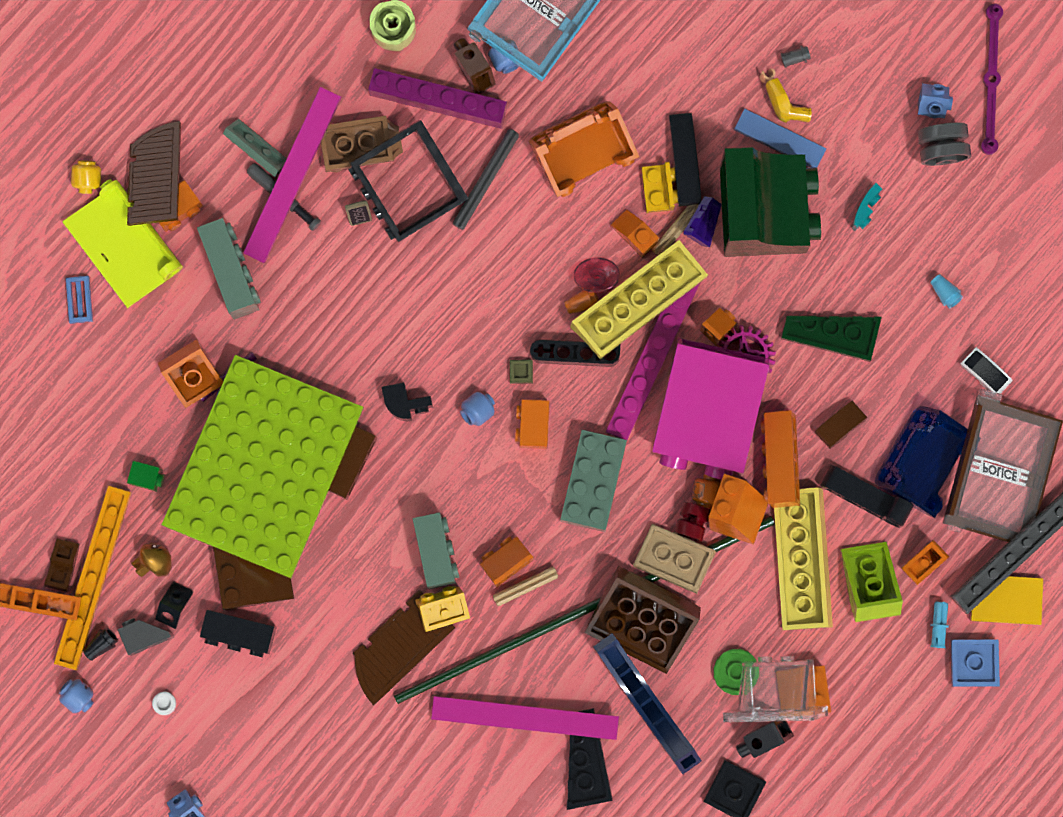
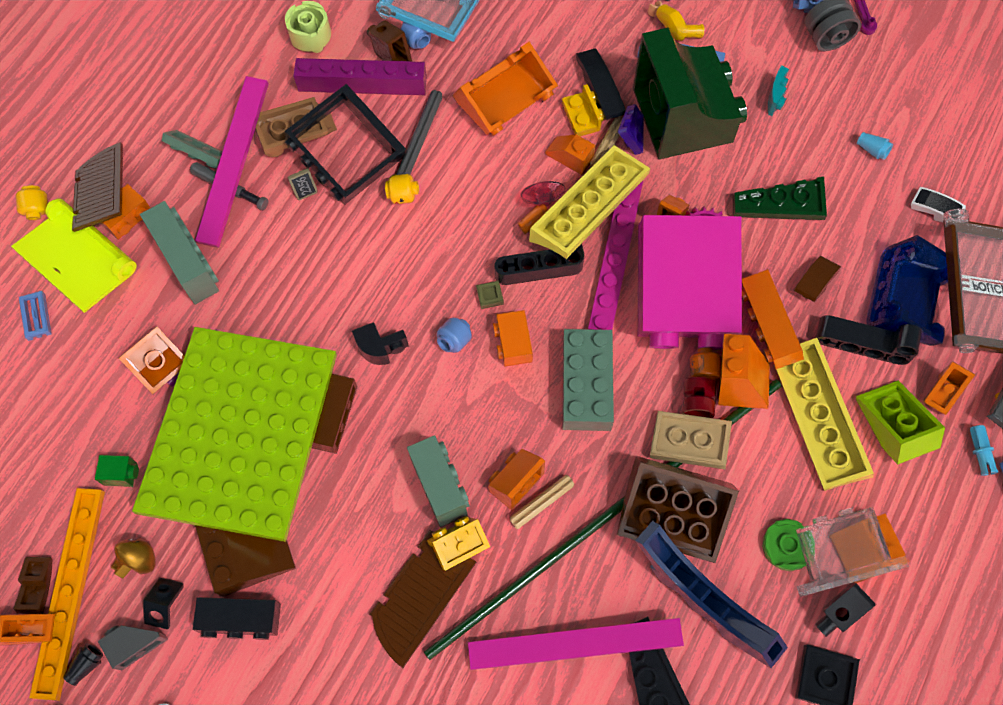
camera: 15 degrees left, 15 degrees down
(456, 240) = (401, 188): none -> yellow head

